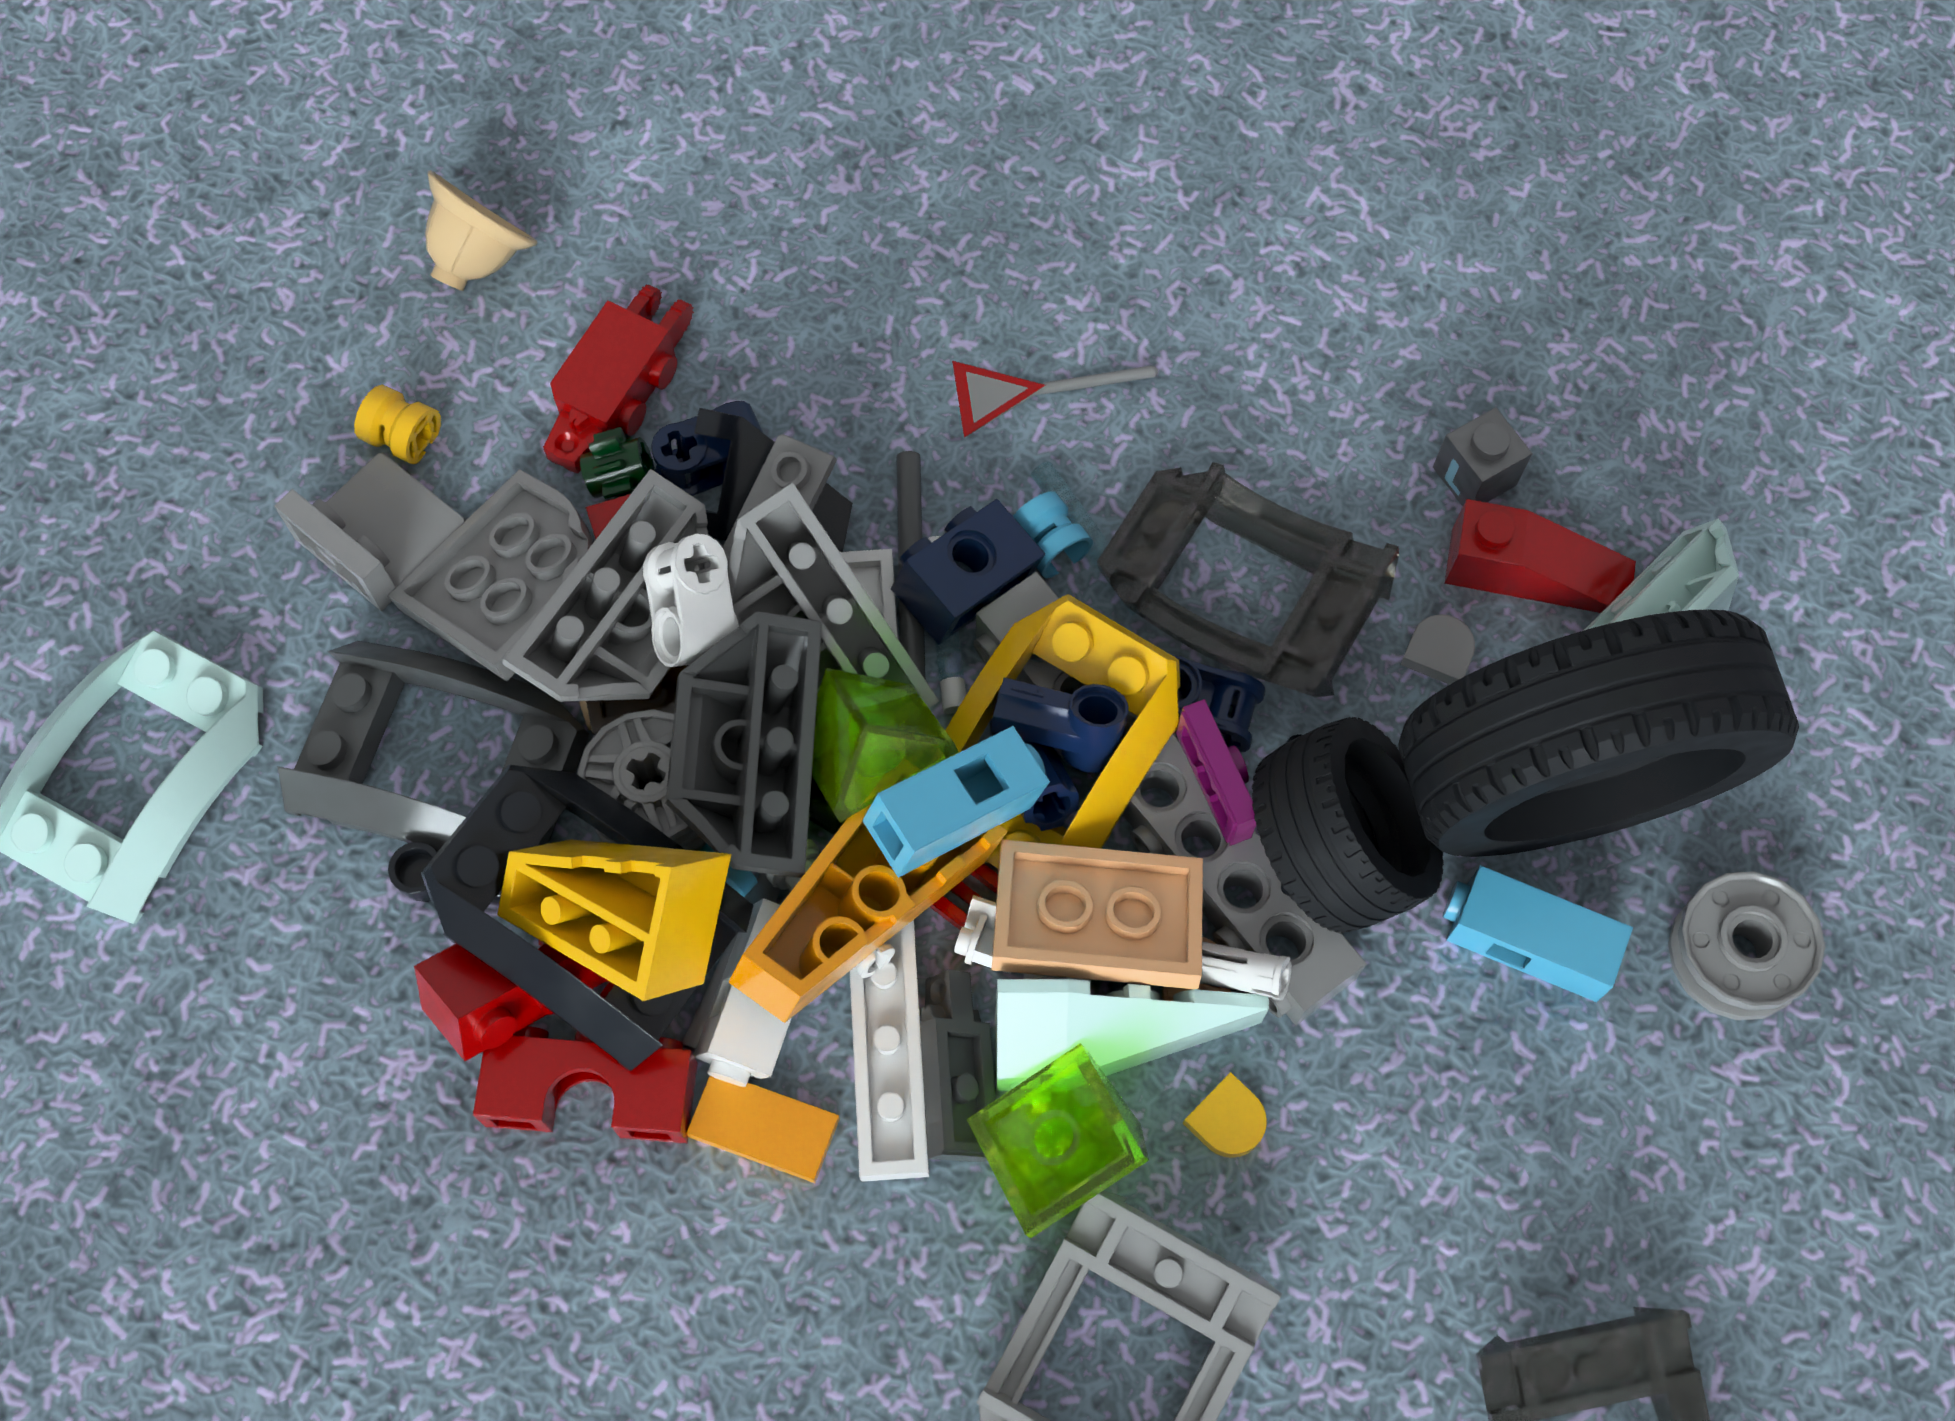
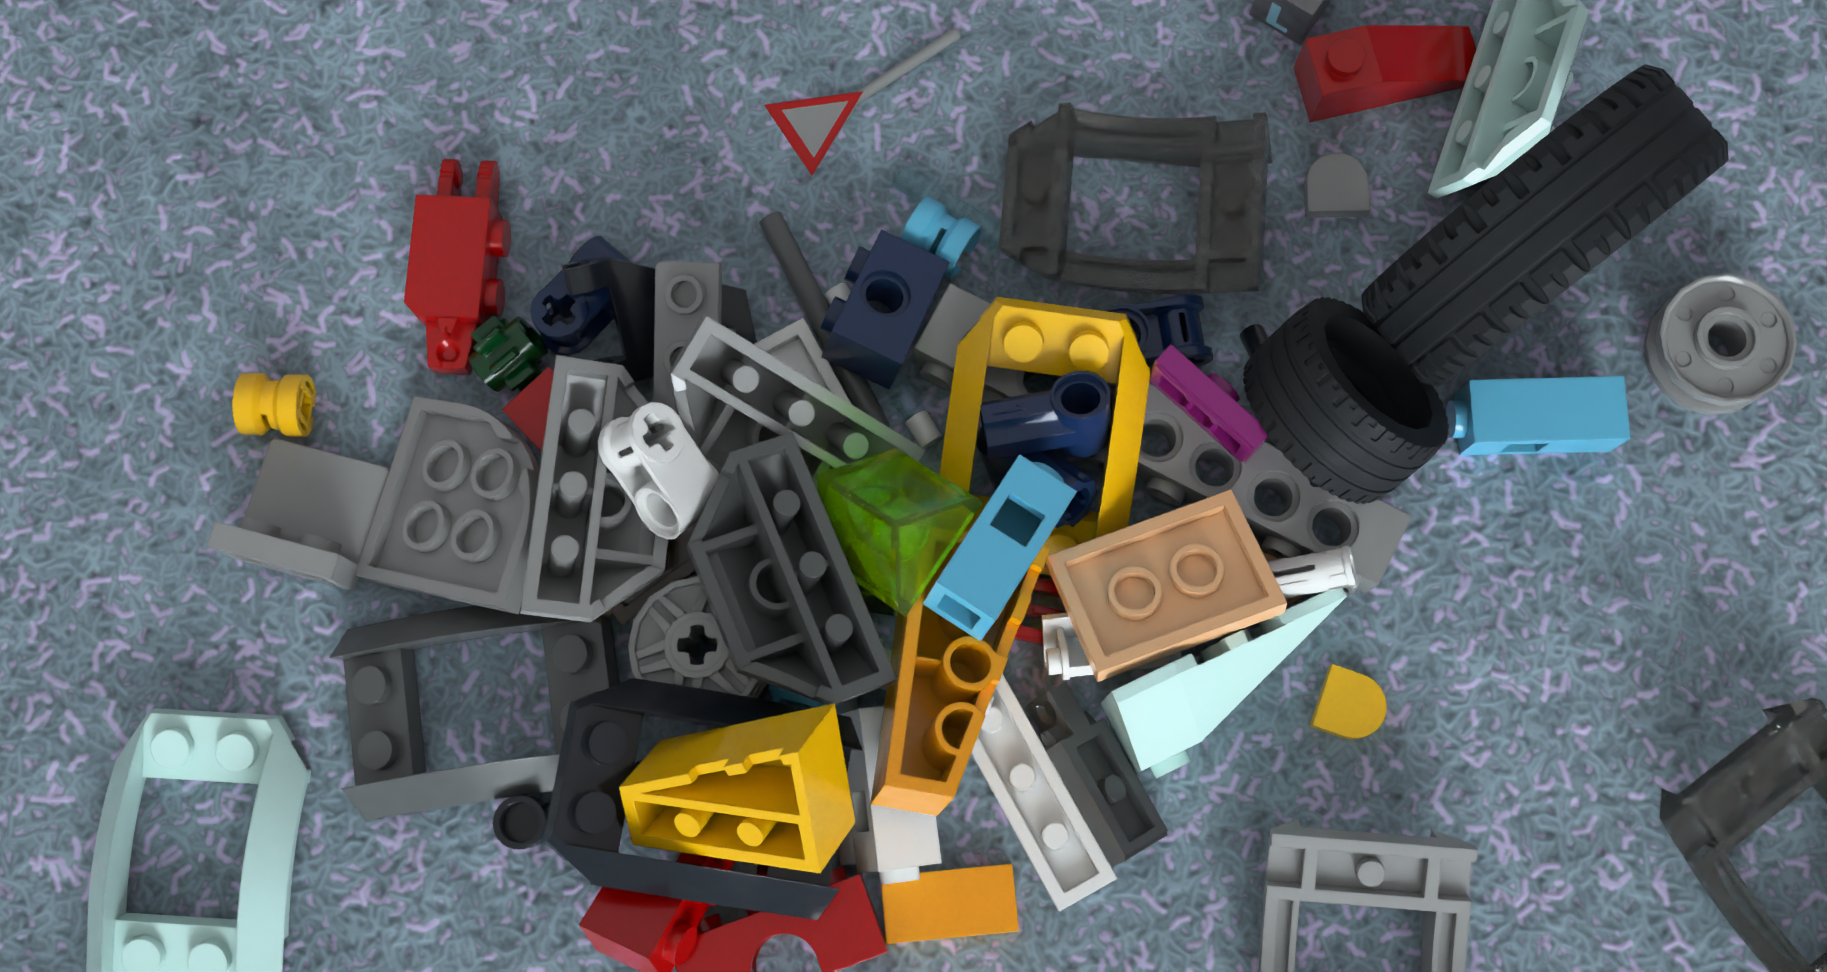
camera: 20 degrees left, 10 degrees up
(467, 237) = (243, 185): tan hat -> none
(1059, 1139) = (1225, 803): clear neon green slope -> none

